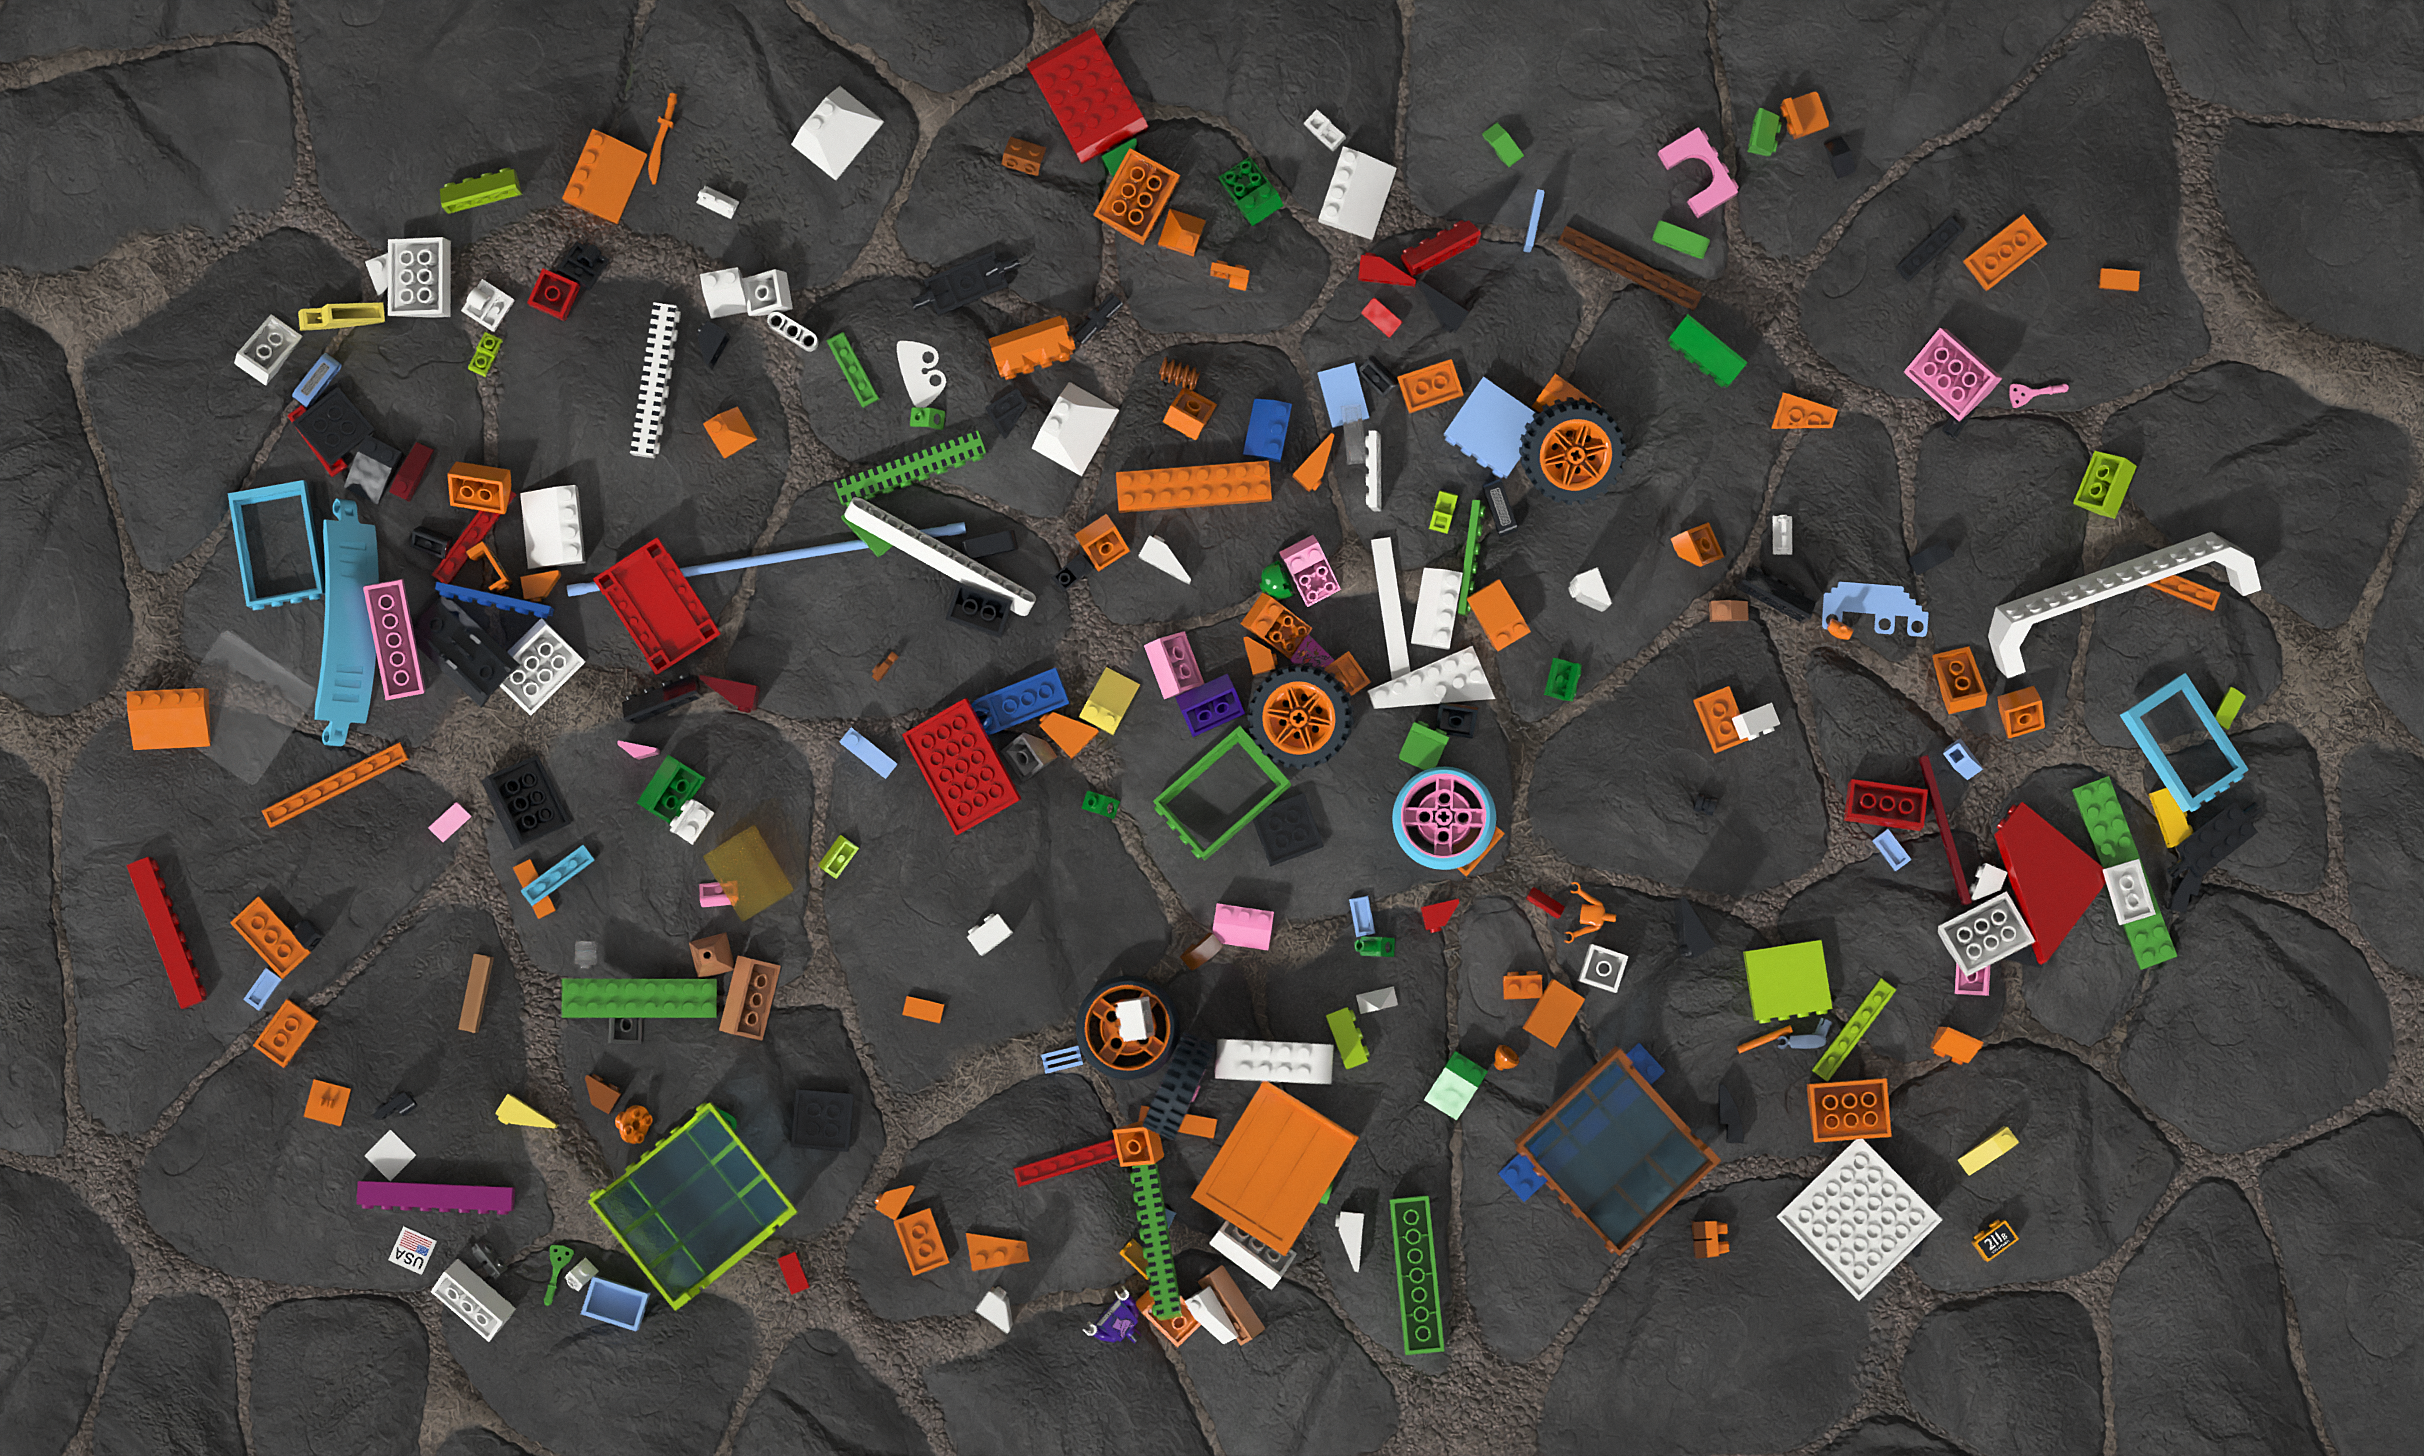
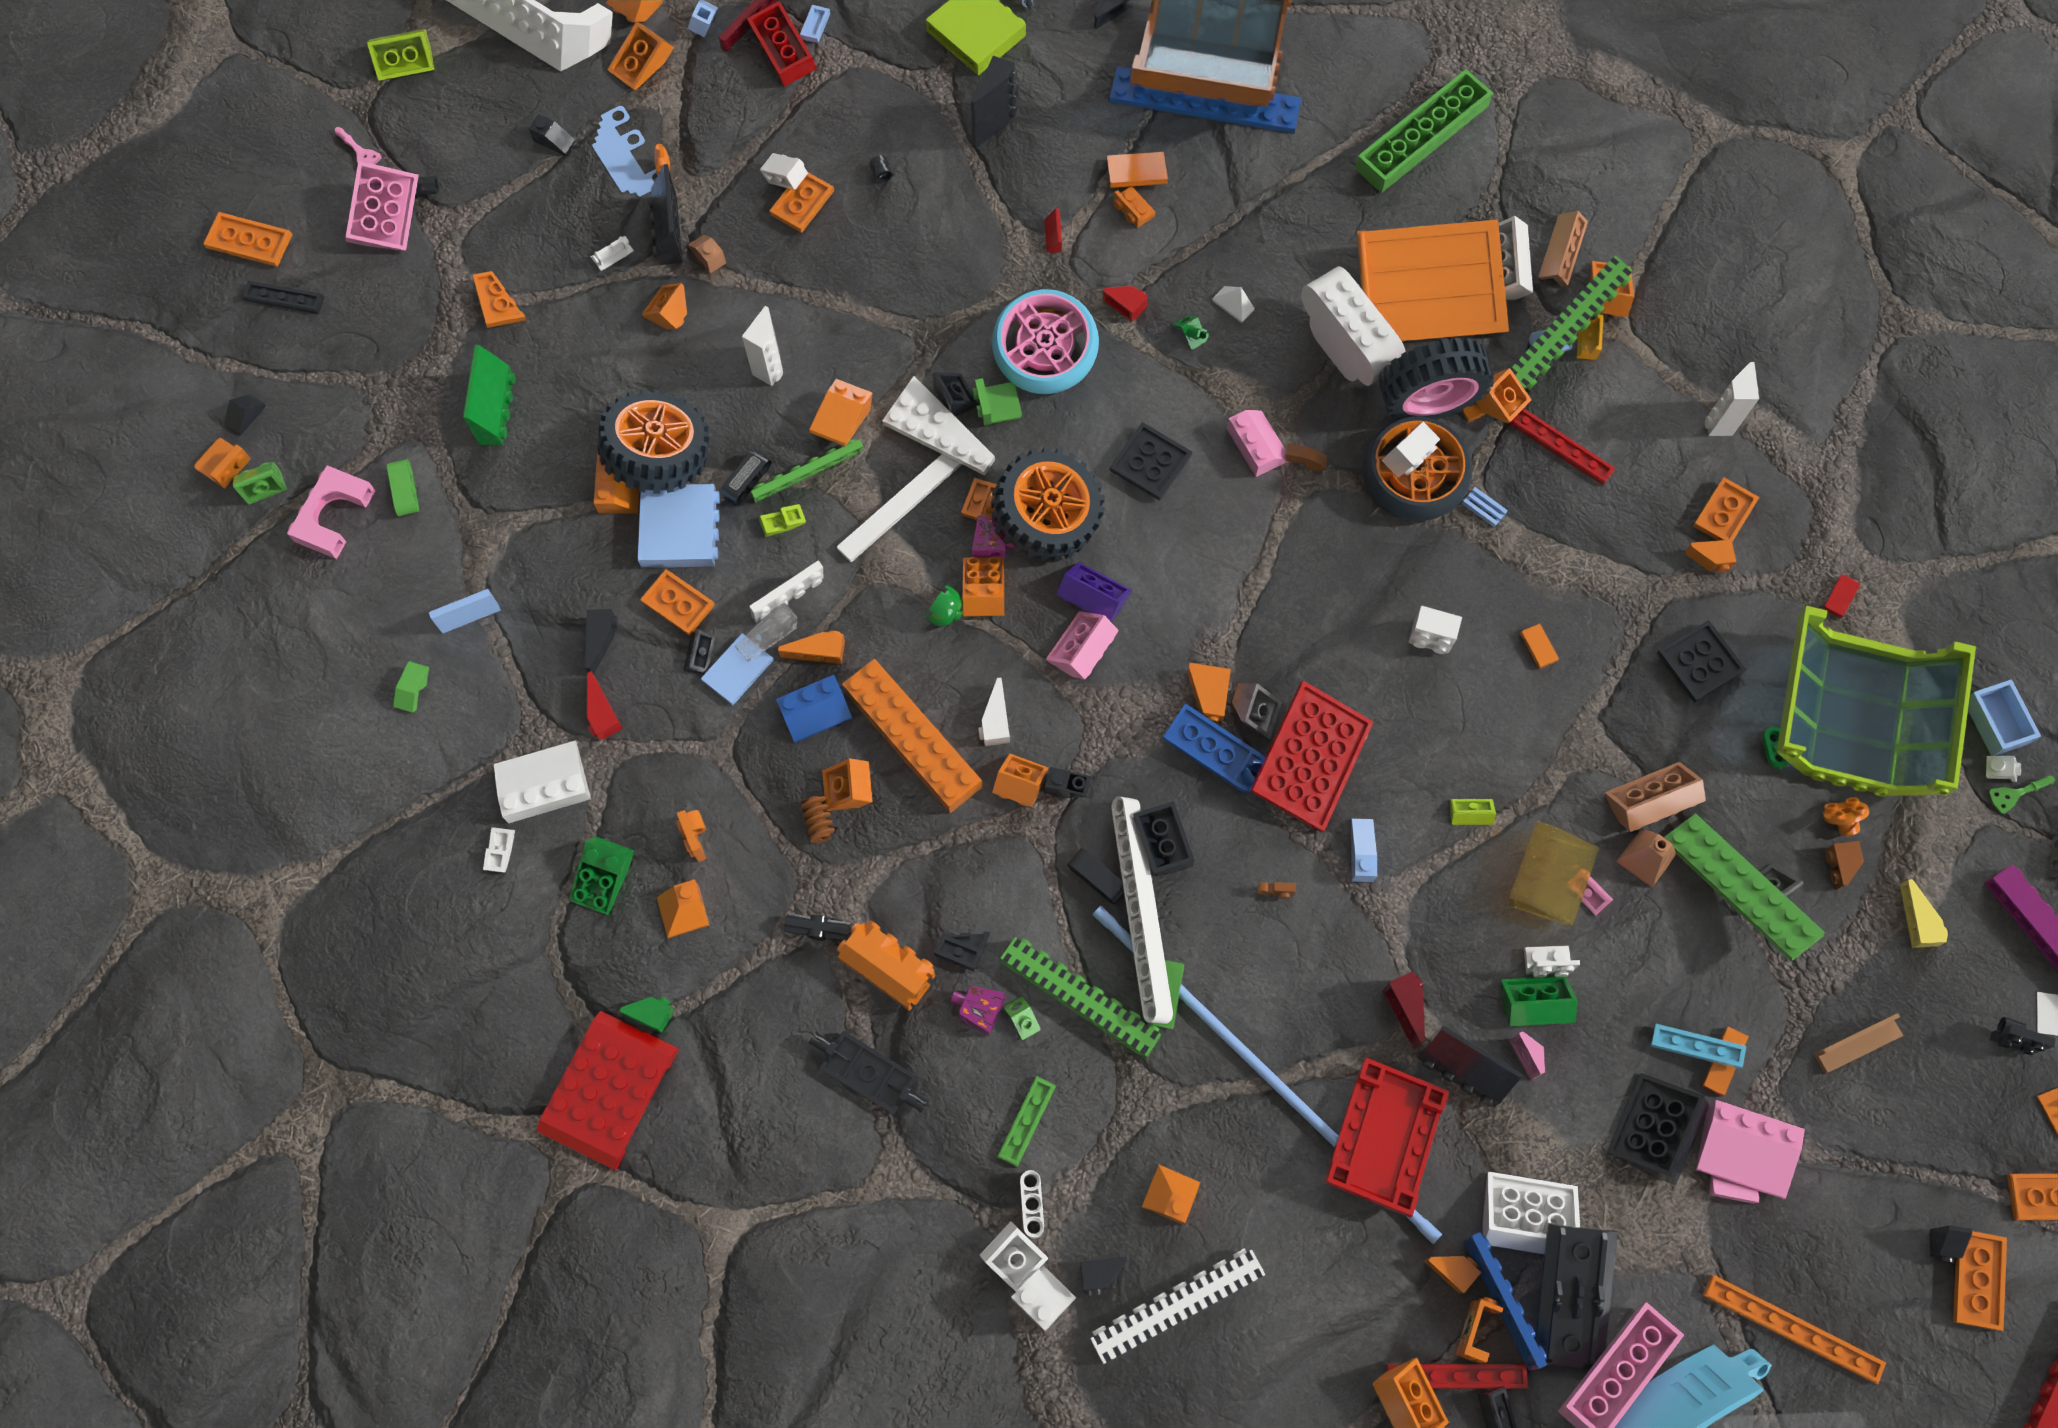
camera: 125 degrees left, 15 degrees down
(263, 989) = (2030, 1251): light blue tile -> none
(465, 851) = (1749, 1149): none -> bright pink slope
(553, 527) = (1391, 1300): white slope -> none
(585, 953) = (1741, 969): clear brick -> none
(717, 202) = (958, 1377): white hinge -> none
(836, 132) = (806, 1307): white slope -> none
(911, 364) = (983, 1069): white piece -> none
(955, 392) = (979, 1007): none -> magenta torso
(994, 1252) = (1684, 453): orange wing -> none
(1023, 156) = (707, 1107): dark orange bracket -> none
(1074, 428) = (934, 877): white slope -> none
(1098, 804) = (1250, 624): green bracket -> none
(1109, 701) = (1156, 676): light yellow slope -> none
(1117, 1320) = (1653, 320): torso -> none
(1137, 196) = (675, 968): orange slope -> none
(1211, 1315) = (1585, 256): white slope -> none
(1237, 736) = (1169, 493): bright green window -> none
(1260, 657) = (1022, 579): orange slope -> none
(1310, 570) = (913, 591): bright pink slope -> none
(1347, 1038) = (1281, 302): lime brick -> none
(1350, 1230) = (1430, 200): white slope -> none
(1362, 916) = (1174, 359): light blue tile -> none
(1381, 317) = (642, 684): slope -> none
(1436, 608) = (870, 468): white slope -> none
(1440, 248) = (542, 669): red slope -> none
(1455, 1085) = (1251, 201): slope -> none
(1505, 1058) = (1201, 179): orange brick -> none
(1563, 679) = (858, 333): green bracket -> none
(1590, 914) = (1035, 191): orange piece -> none
(1603, 968) = (1073, 154): white brick -> none
(1629, 268) = (457, 513): reddish brown plate -> none
(1764, 1039) = (1035, 18): orange bar -> none
(2119, 279) = (216, 146): orange tile -> none

